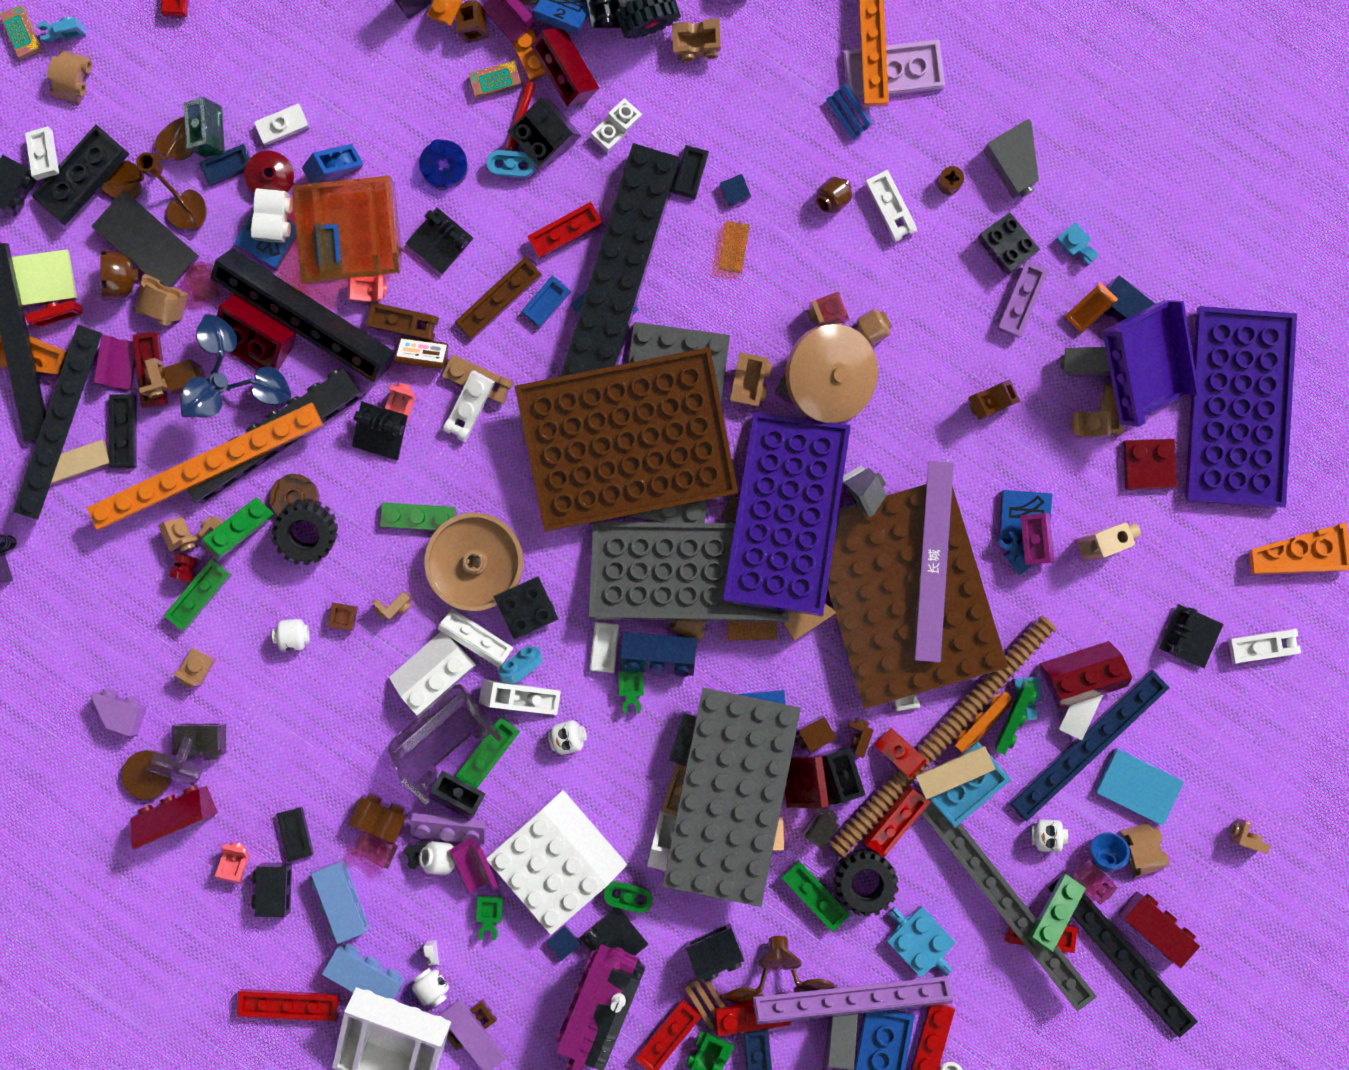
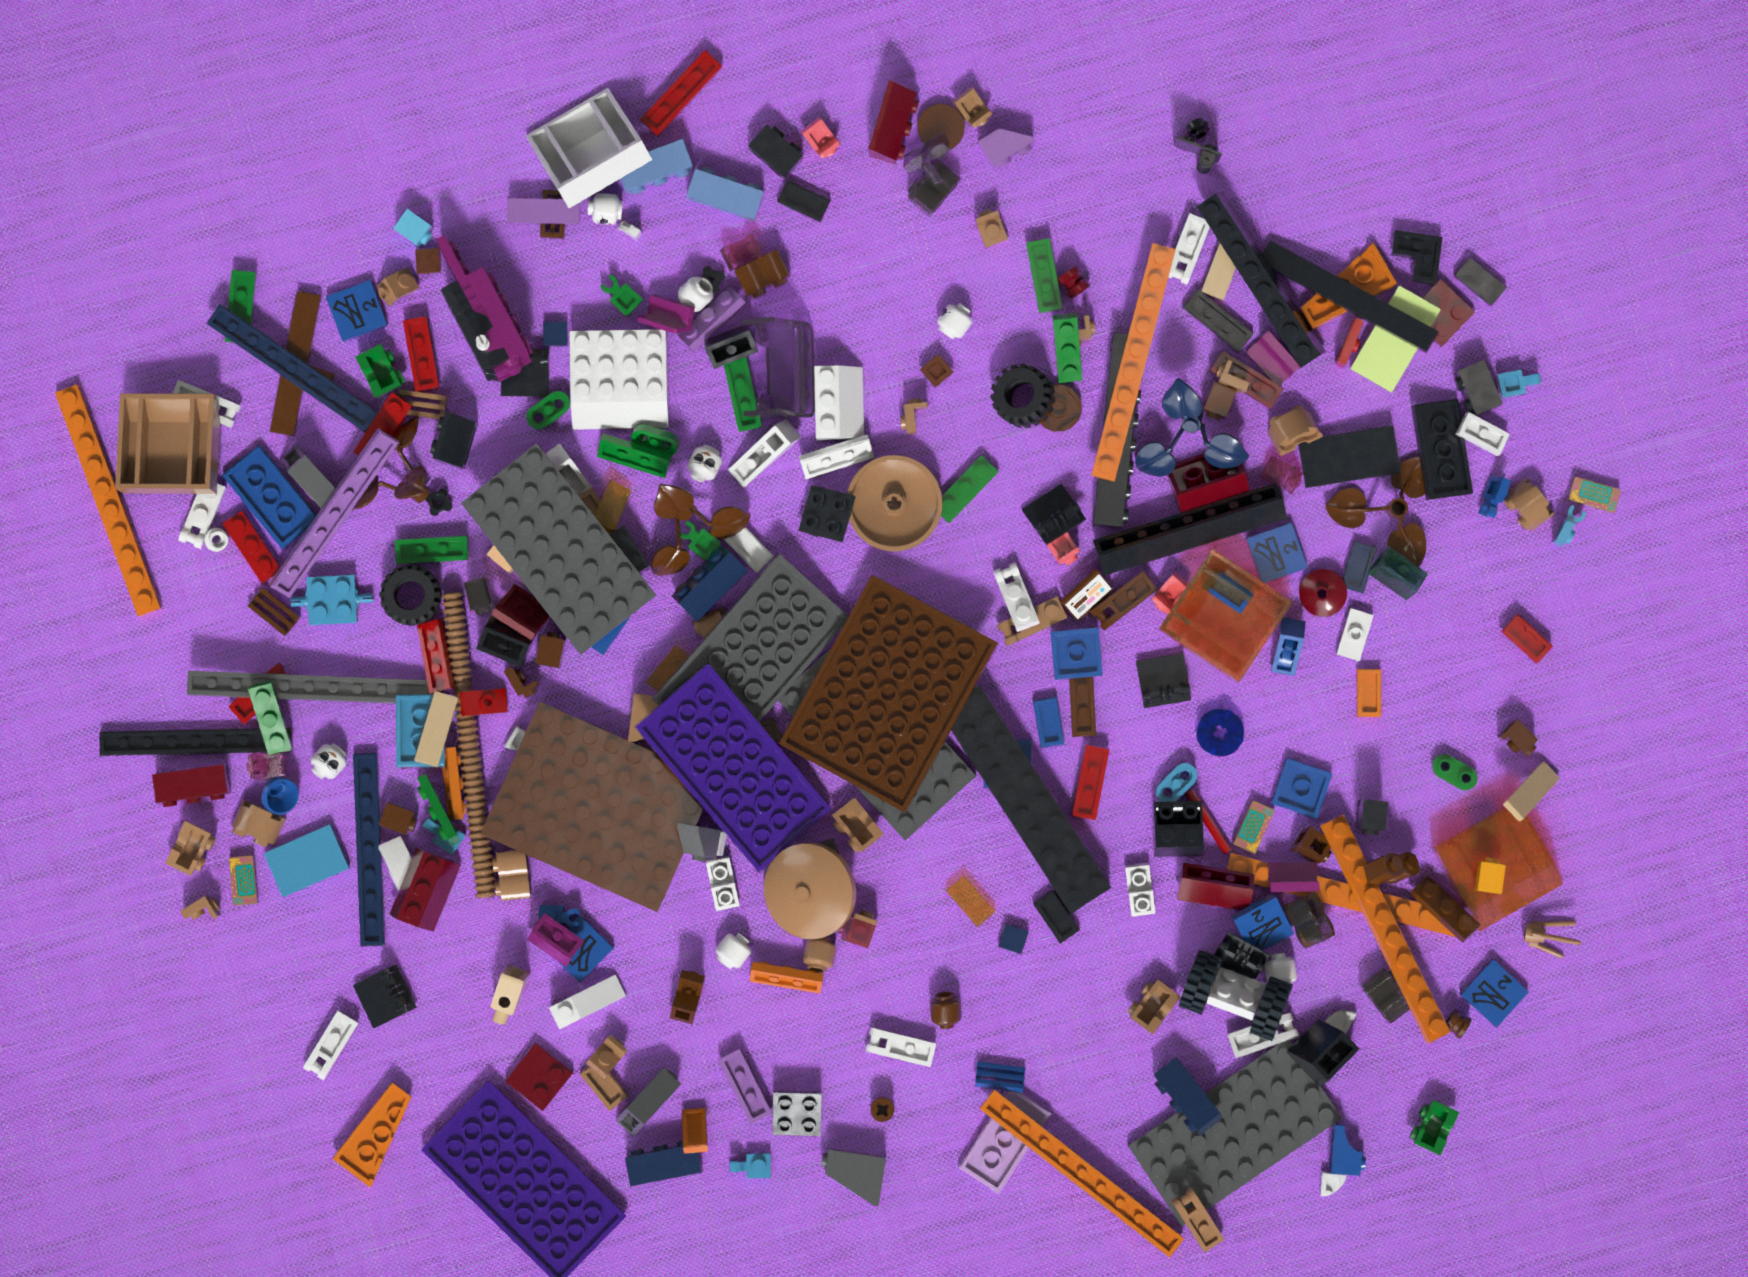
camera: 130 degrees right, 0 degrees up
(75, 501) = (1189, 247): none -> white plate
(80, 107) = (1494, 493): none -> blue plate
(109, 763) = (972, 108): none -> medium nougat bracket
(116, 275) = (1337, 413): reddish brown cylinder -> none
(178, 535) = (1101, 298): medium nougat bracket -> none
(271, 216) = (1286, 568): white brick -> none
(318, 77) = (1368, 692): none -> orange tile
(434, 67) = (1301, 788): none -> blue tile
(474, 322) = (1076, 653): none -> blue tile
(520, 665) = (787, 473): dark azure plate -> none
(581, 791) = (655, 439): none -> green plate
(607, 798) = (634, 455): none -> green plate
(616, 730) = (678, 504): none -> reddish brown plant
(661, 782) = (612, 505): none -> clear yellow tile
(774, 929) = (445, 505): none -> black plate
(882, 447) = (722, 883): none -> white slope
(912, 337) = (786, 977): none -> orange plate
(927, 395) = (733, 950): none -> white head
(934, 561) = (604, 845): medium lavender tile -> none
(960, 1001) = (257, 599): none -> reddish brown tile
(1015, 614) = (513, 875): none -> medium nougat brick
(1047, 742) = (398, 819): none -> reddish brown brick
(1063, 475) = (587, 1001): none -> white slope
(1150, 360) = (617, 1134): dark purple panel -> none
(1196, 823) = (243, 880): none -> tile
(1210, 886) = (190, 849): none -> medium nougat cylinder

